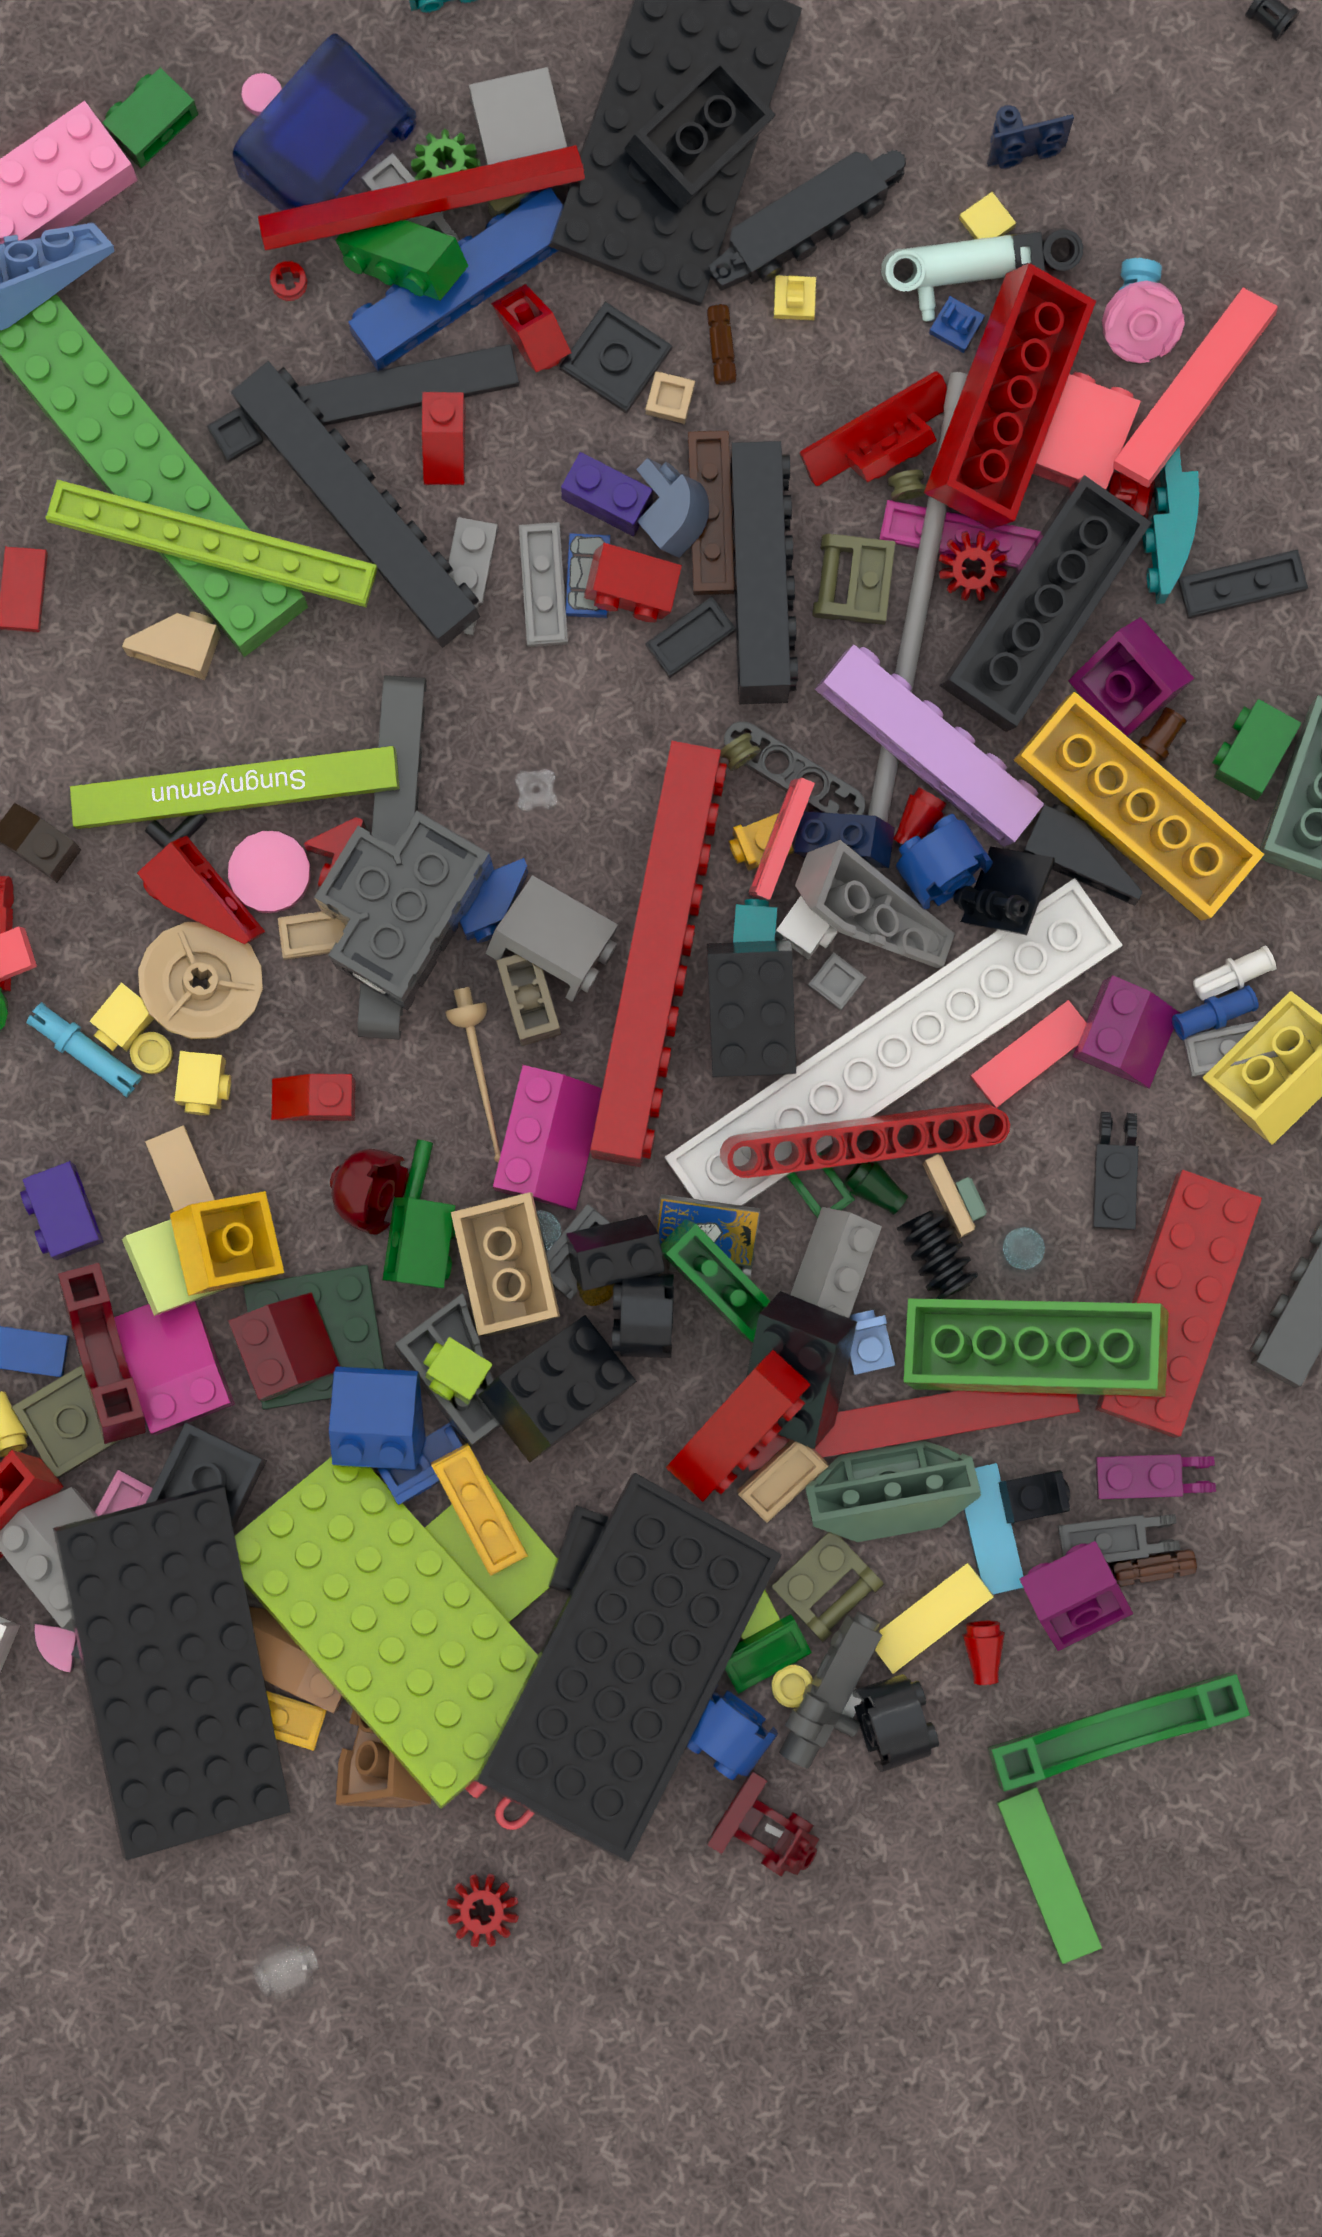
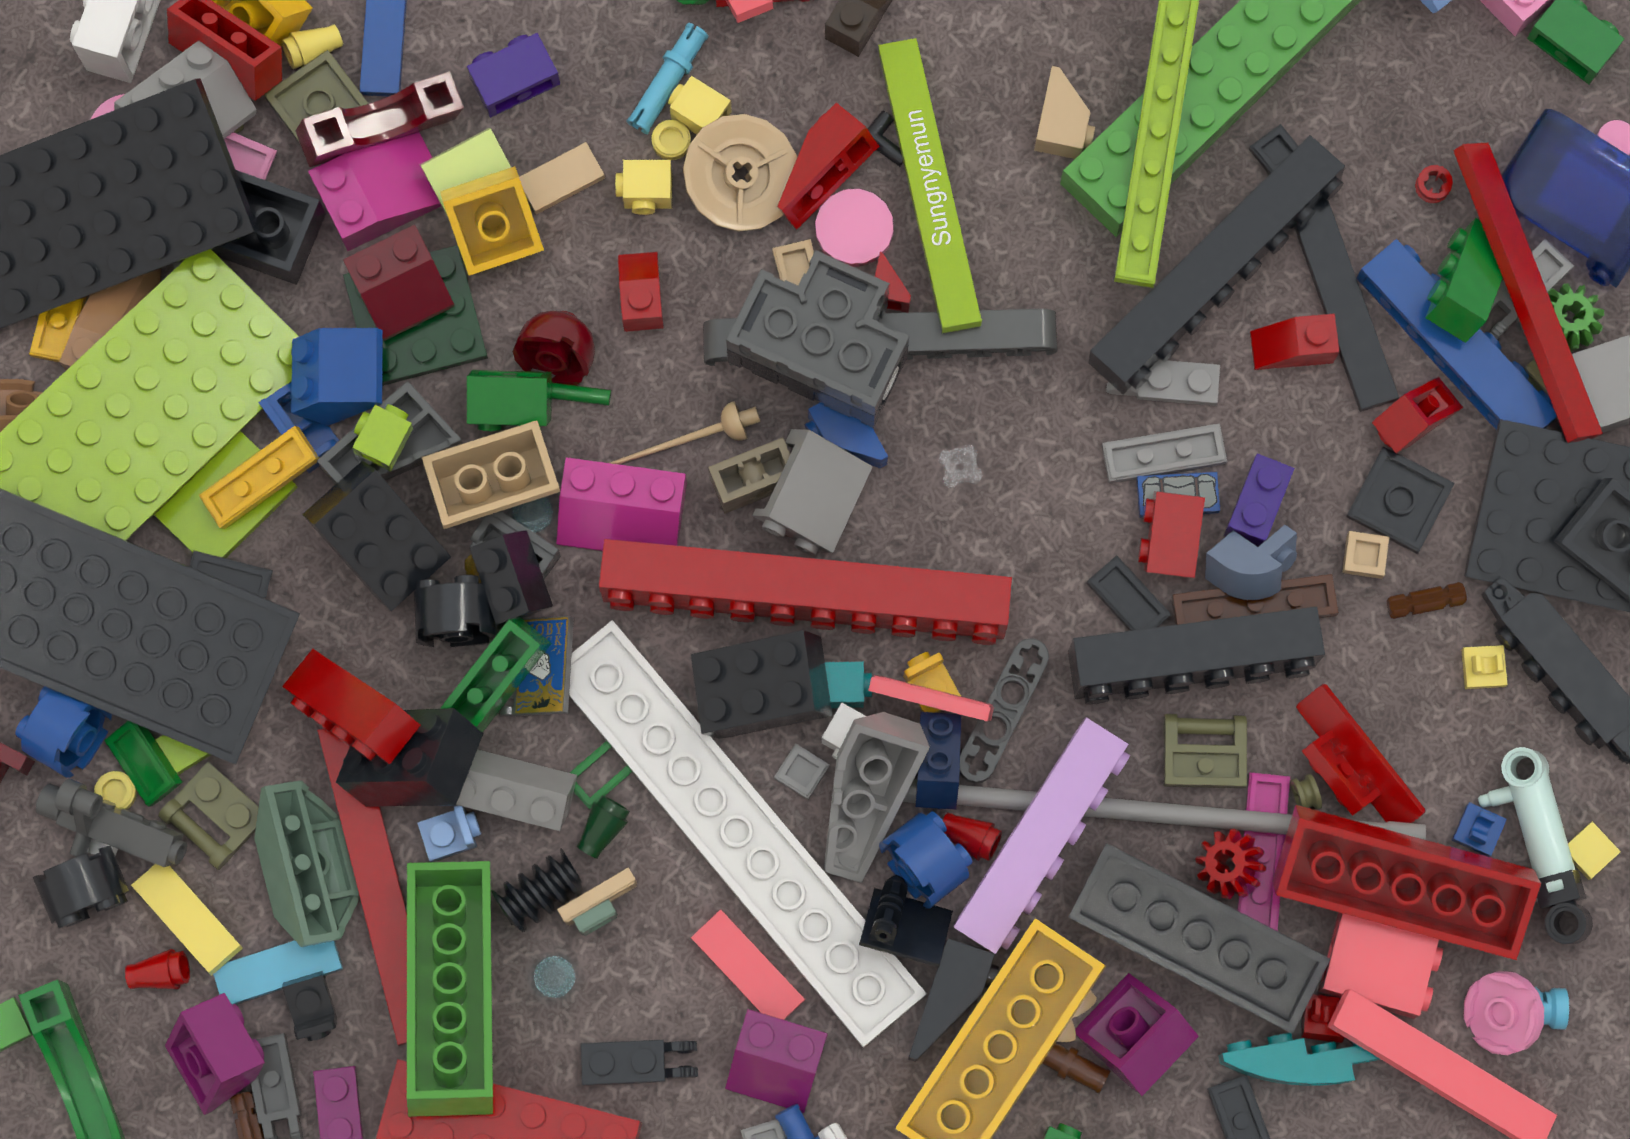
camera: 85 degrees right, 5 degrees down
(739, 751) = (1015, 651): olive bush -> none
(781, 1479) = (309, 760): tan tile -> none
(884, 1144) = (638, 828): red beam -> none

